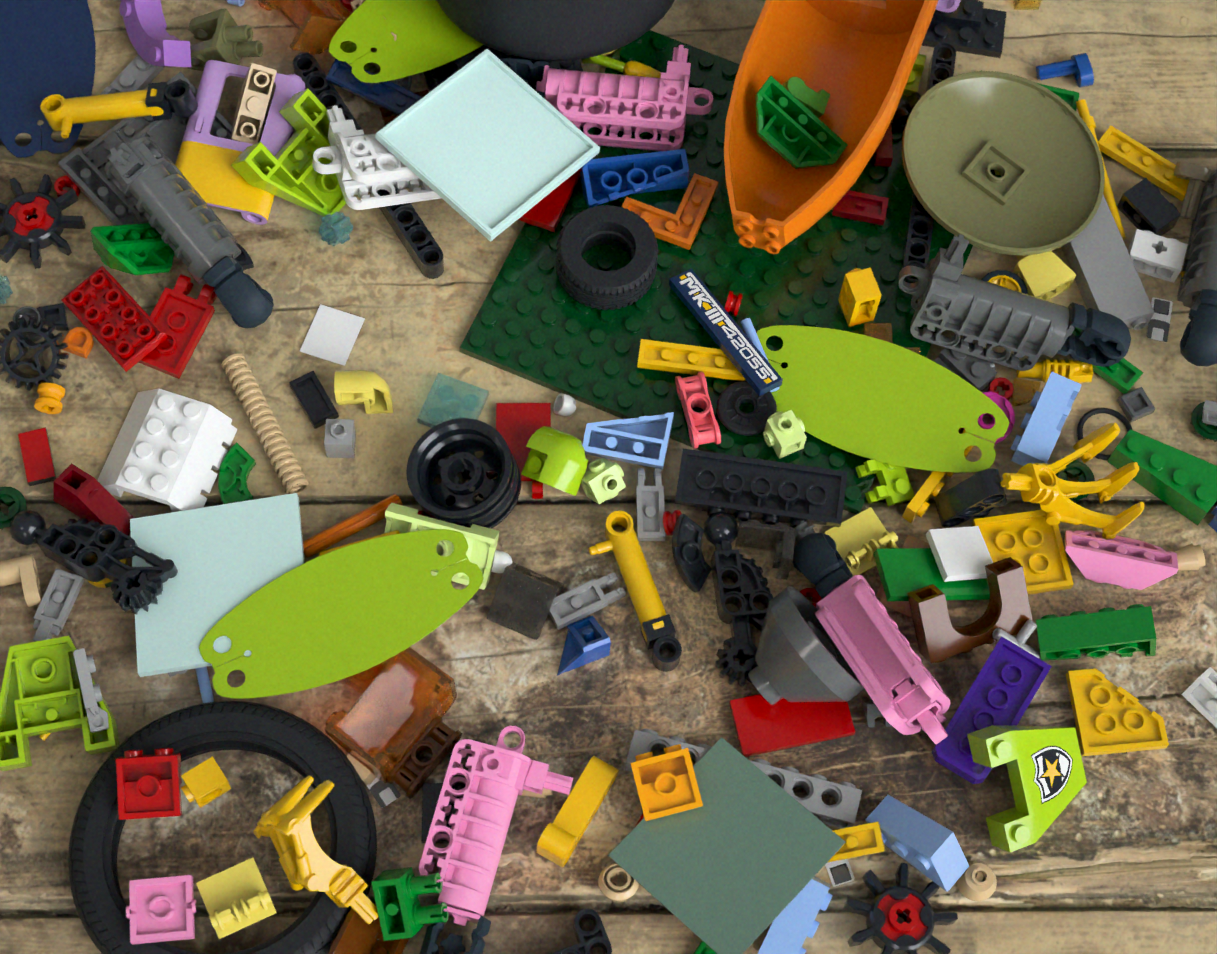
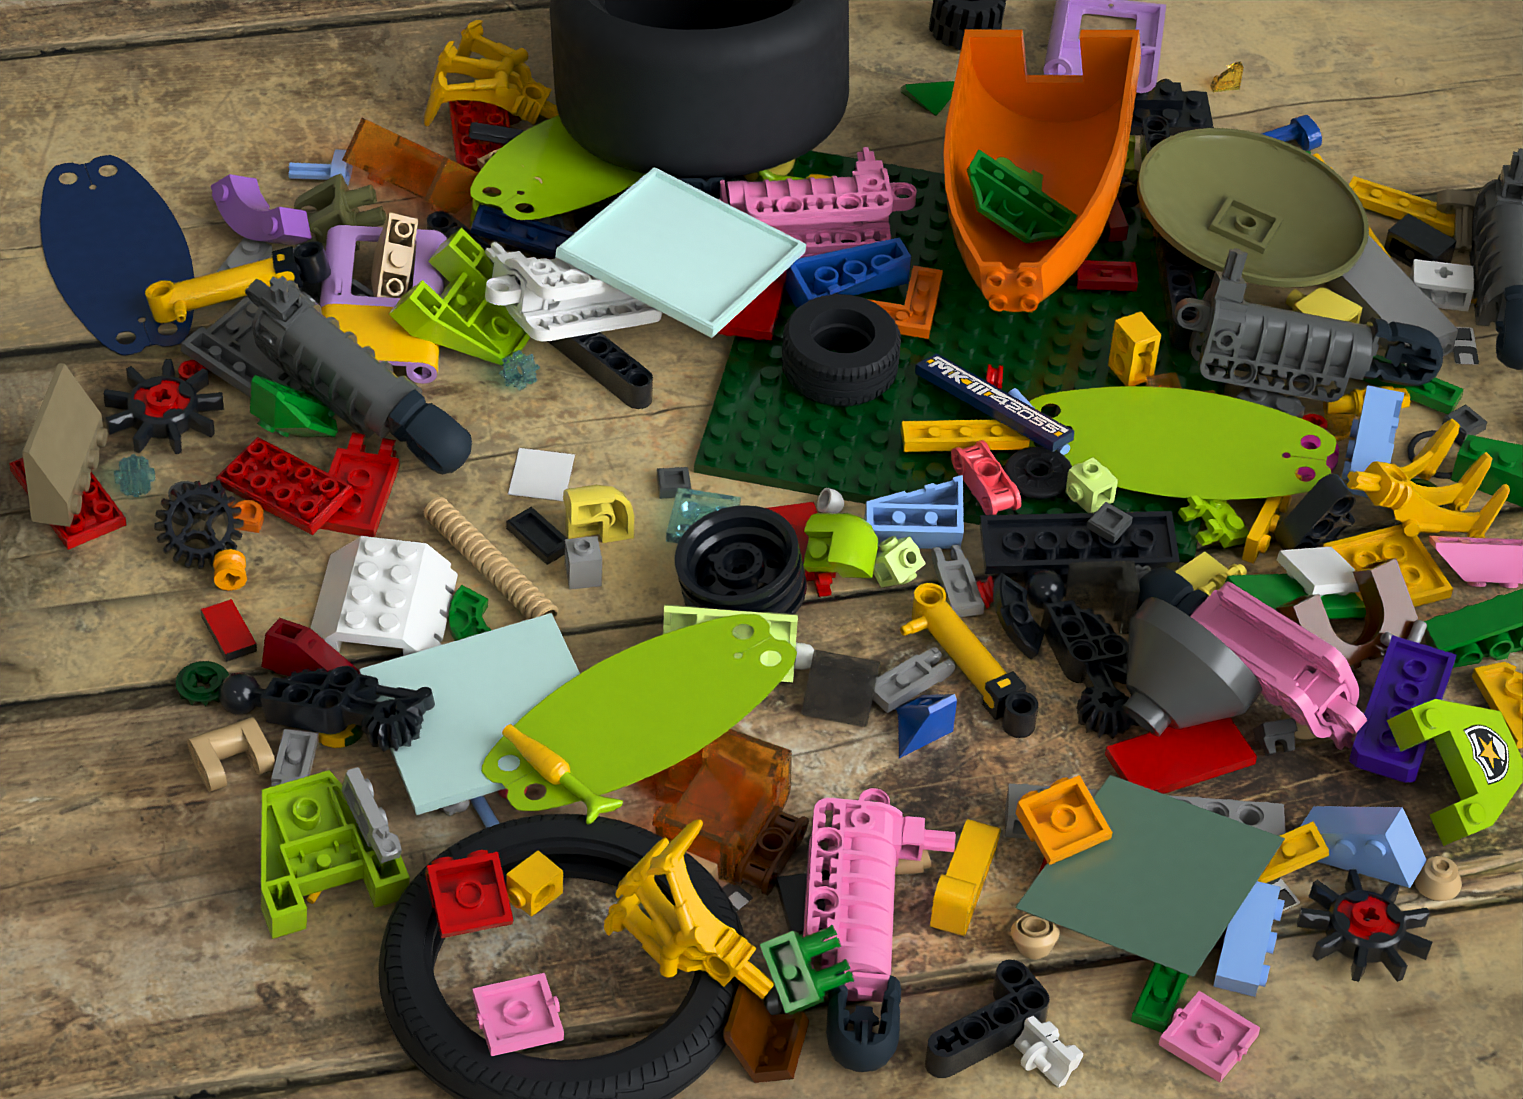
camera: 10 degrees left, 20 degrees down
(236, 898) = (602, 992): light yellow hinge -> none
(255, 666) = (557, 771): none -> piece
(349, 526) = (635, 635): orange axle -> none
(439, 361) = (671, 479): none -> dark grey tile
(790, 476) = (1109, 522): none -> dark grey tile

